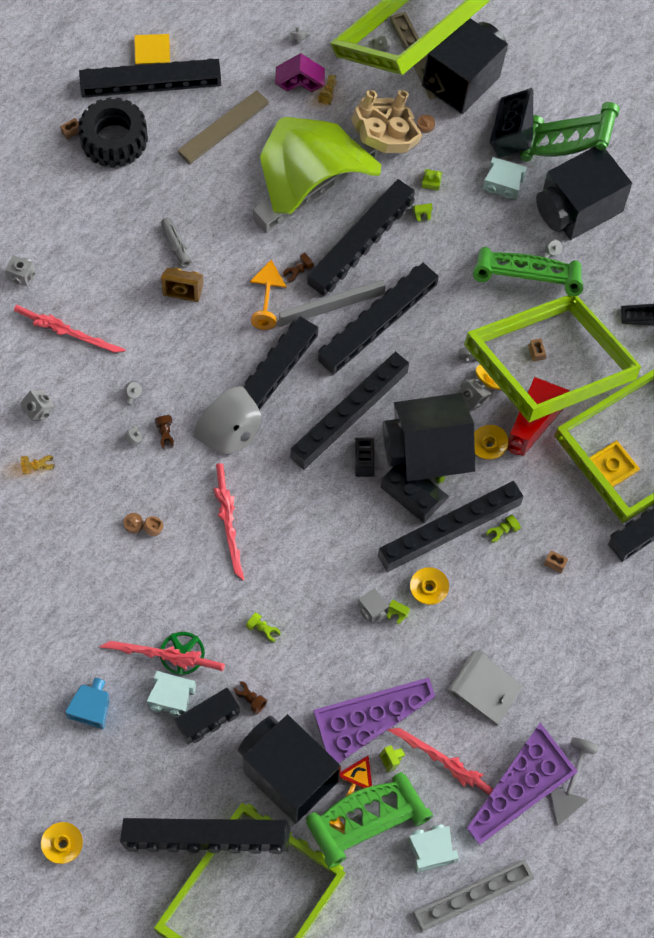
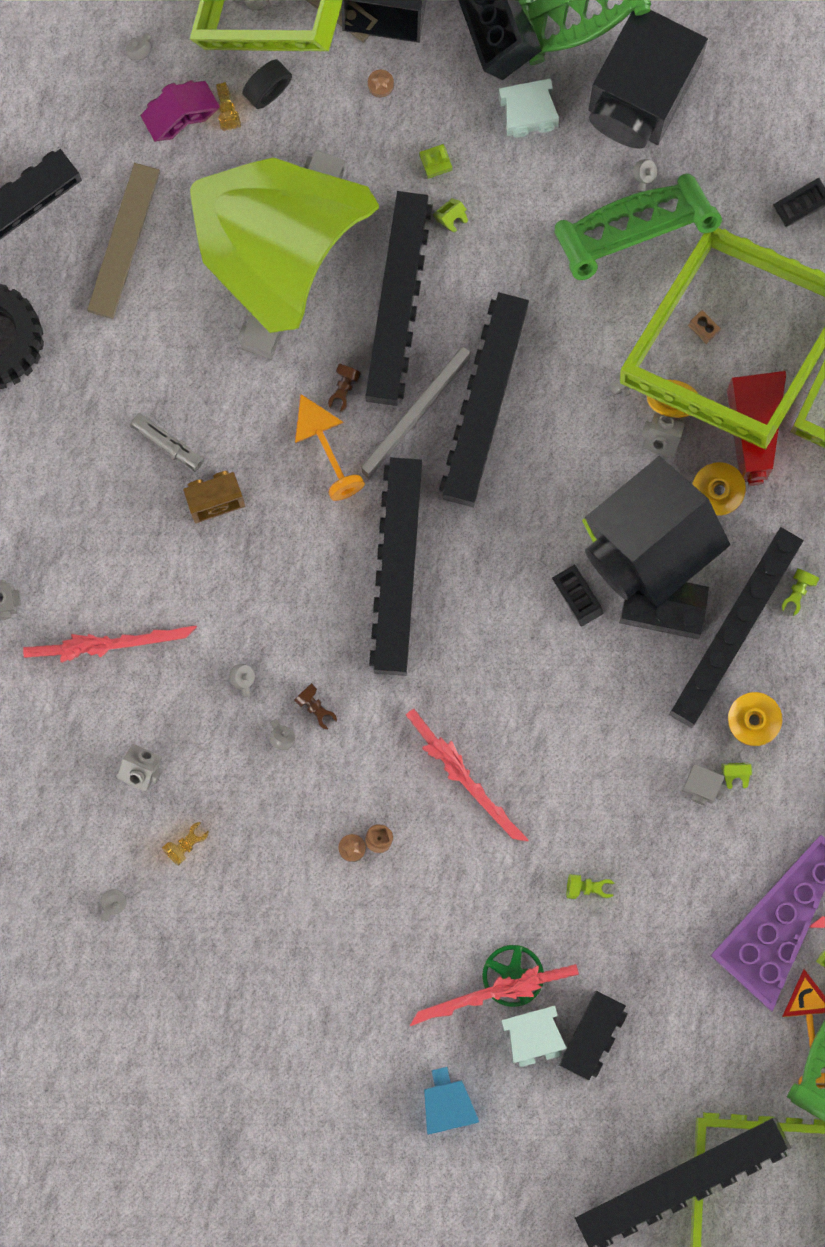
camera: 25 degrees left, 15 degrees up
(219, 419) = (380, 648): light grey piece -> none
(257, 702) = (639, 983): reddish brown piece -> none
(288, 765) = (728, 1045): black container -> none
(349, 410) = (525, 546): black brick -> none
(355, 80) = (267, 84): none -> black tyre
(386, 123) = (327, 110): tan brick -> none

